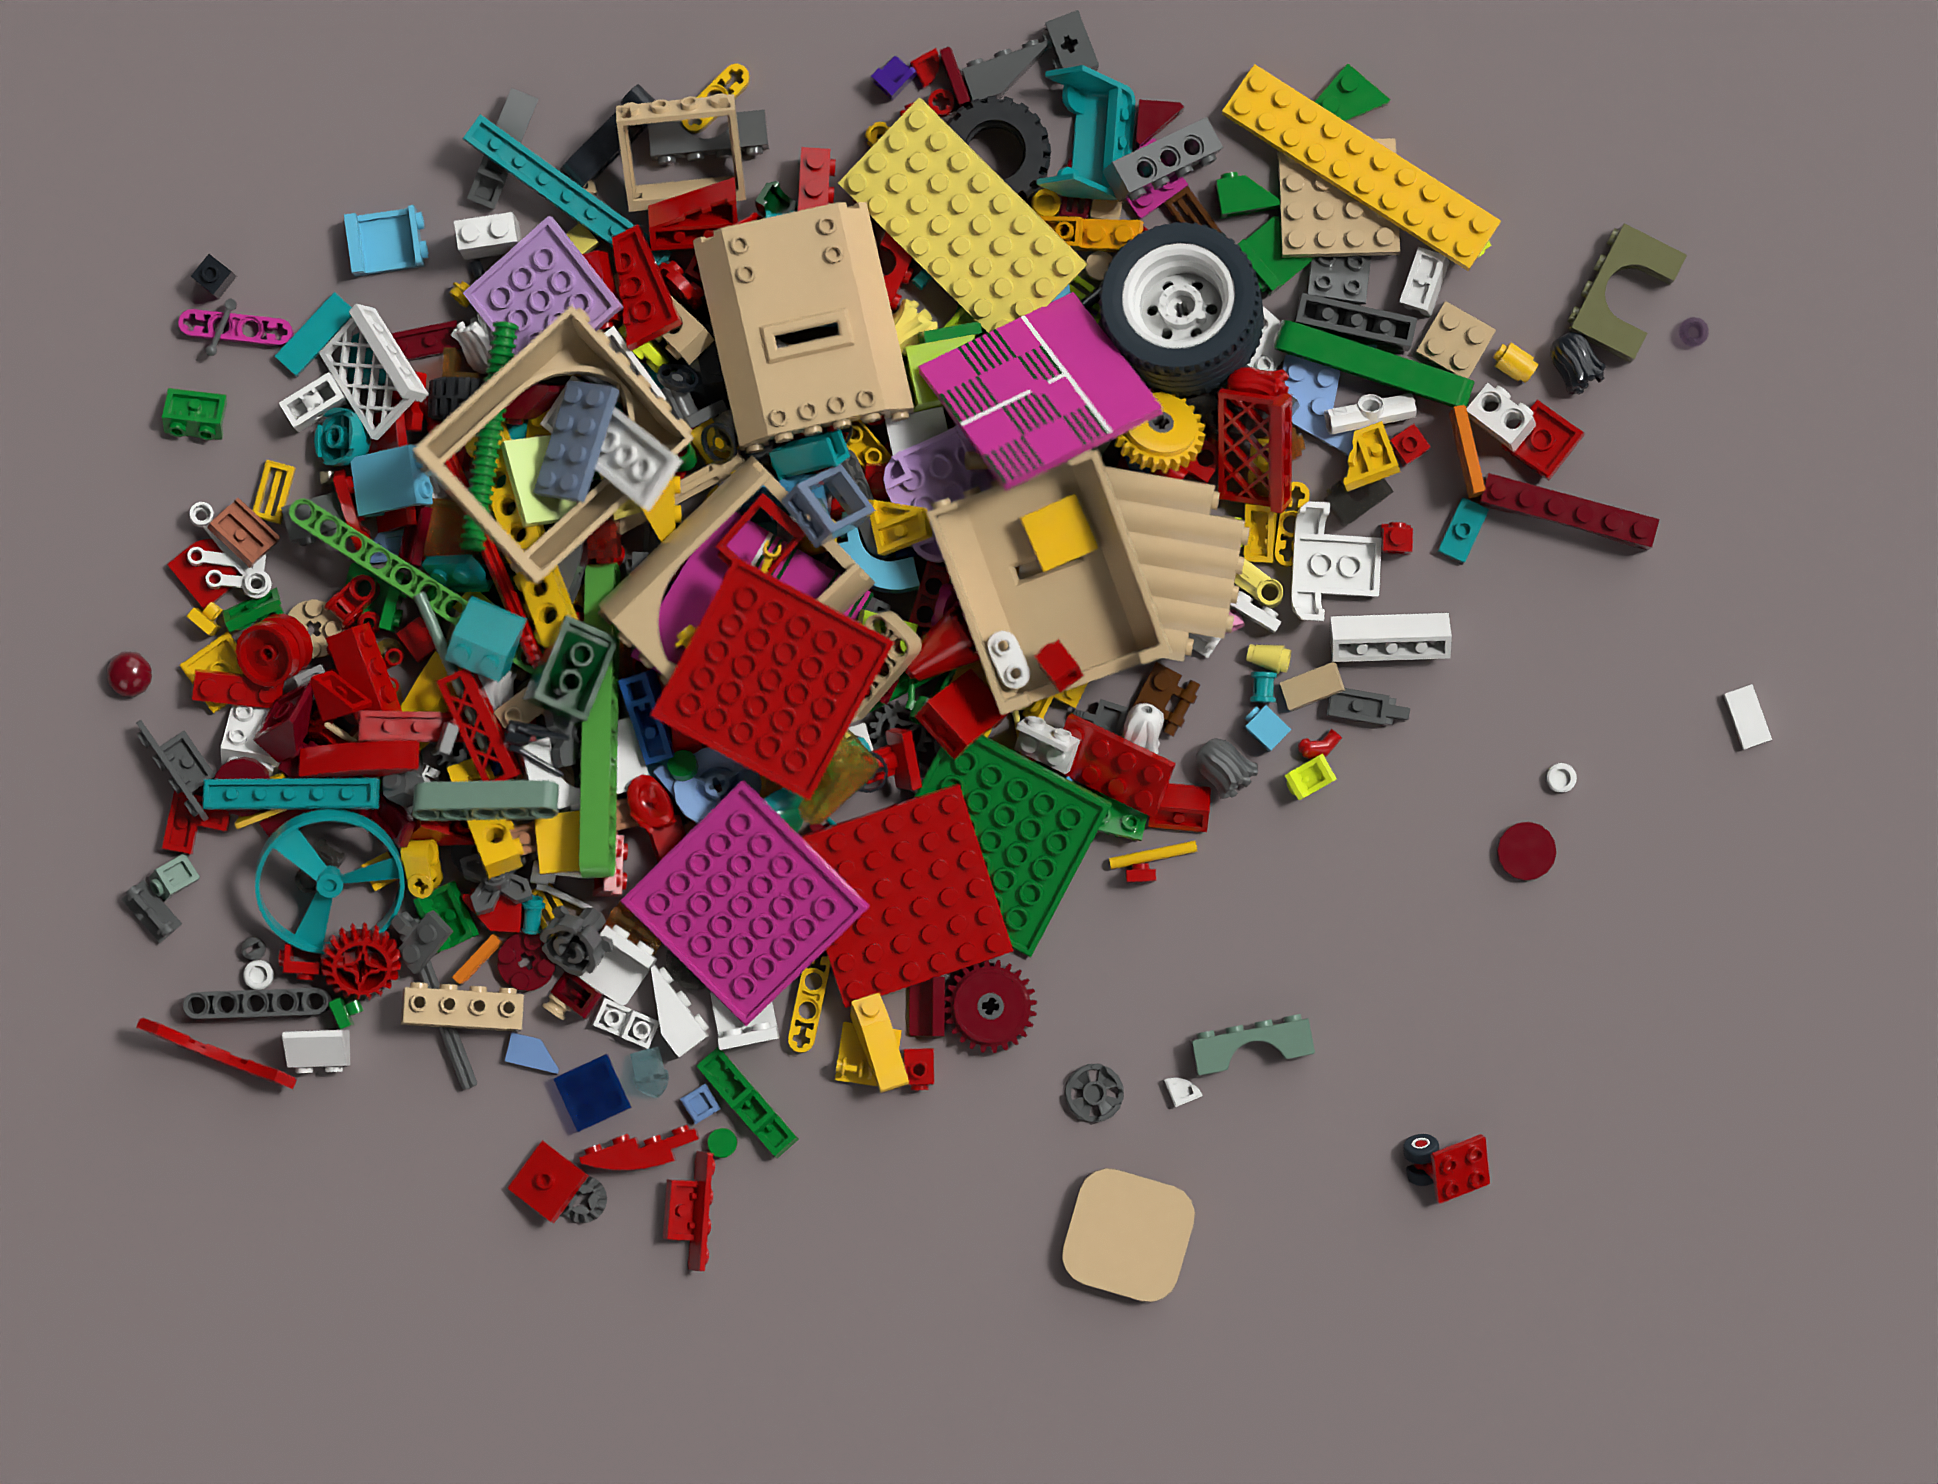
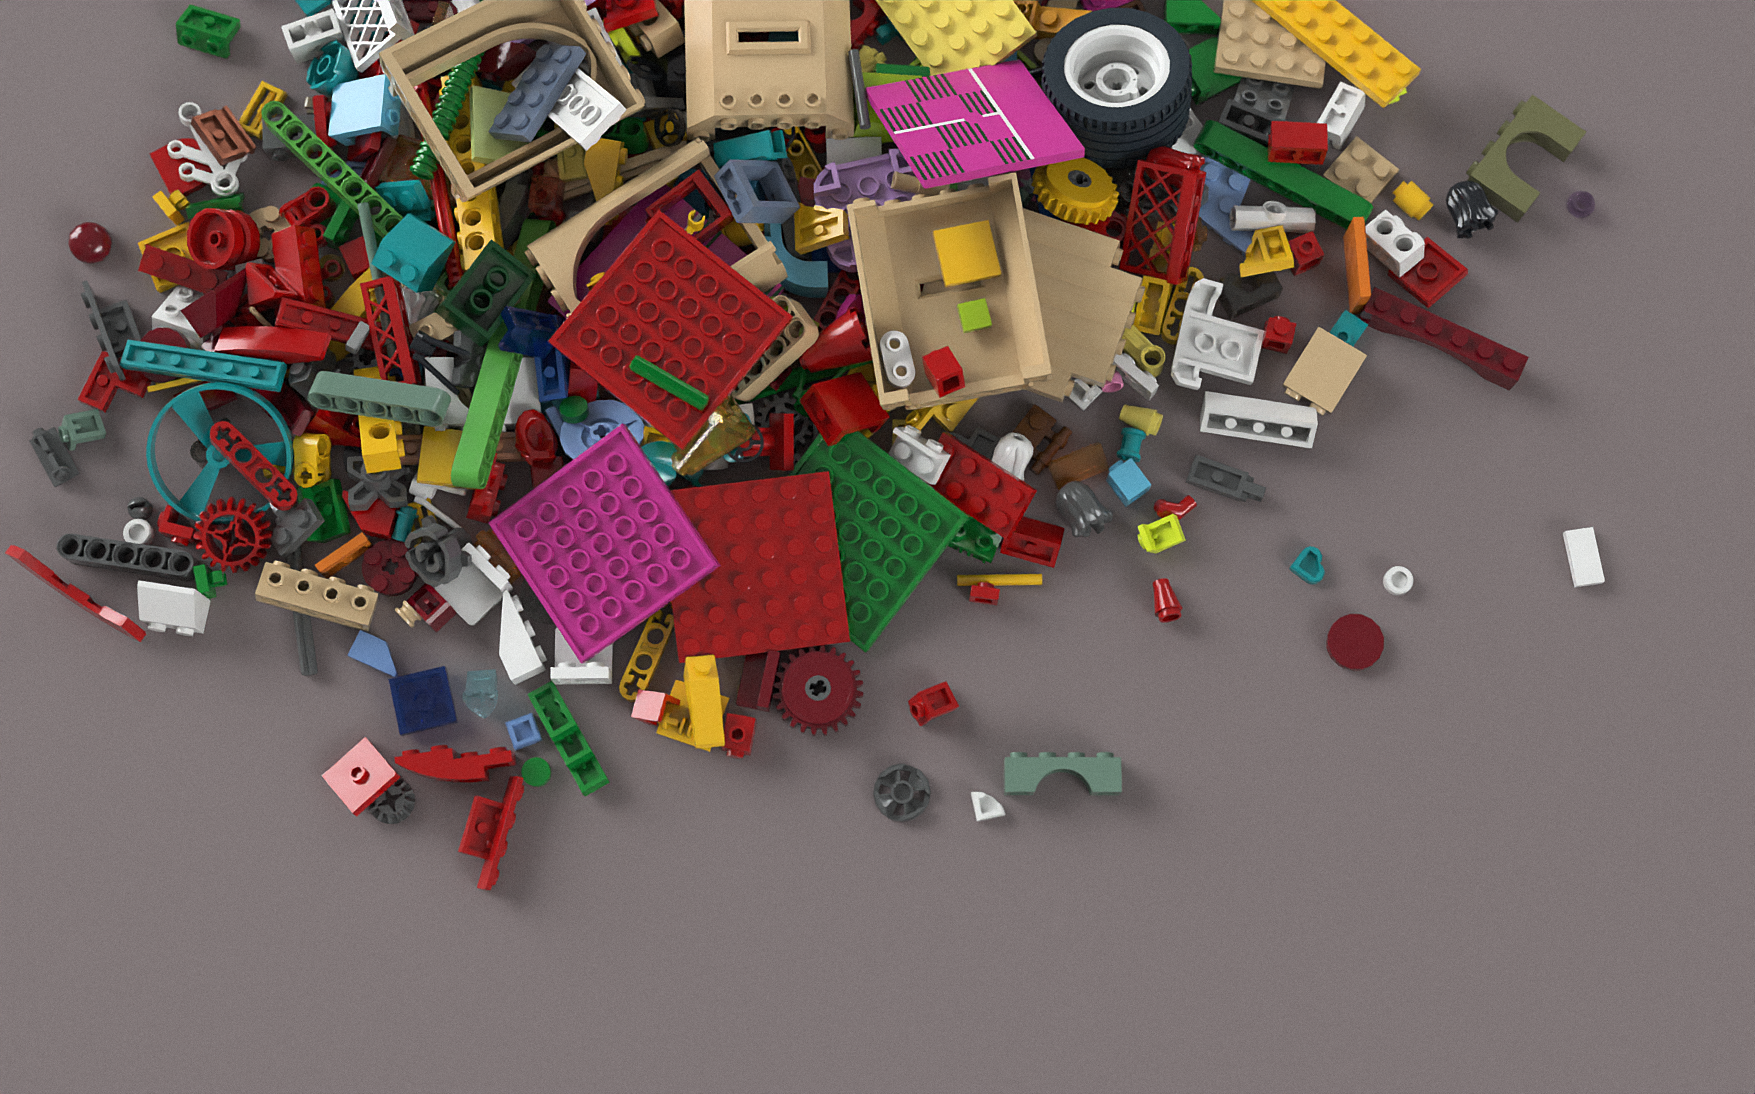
camera: 10 degrees right, 10 degrees down
(366, 895) = (250, 468): none -> red beam
(624, 700) = (527, 332): none -> clear blue panel
(625, 1022) = (469, 641): white slope -> none
(783, 736) = (669, 382): none -> green axle
(826, 1056) = (651, 705): none -> panel
(912, 368) = (859, 89): none -> dark grey bar
(1078, 597) = (974, 315): none -> lime tile
(1108, 997) = (932, 703): none -> red bracket
(1128, 1234) = (908, 935): tan tile -> none
(1213, 719) = (1078, 465): none -> clear orange tile
(1312, 686) = (1177, 451): tan tile -> none
(1327, 847) = (1165, 601): none -> red cone
(1382, 333) = (1297, 142): none -> red hinge
(1450, 572) = (1323, 371): none -> tan brick
(1452, 1169) = (1237, 930): red plate -> none
(1467, 779) = (1308, 565): none -> teal tile

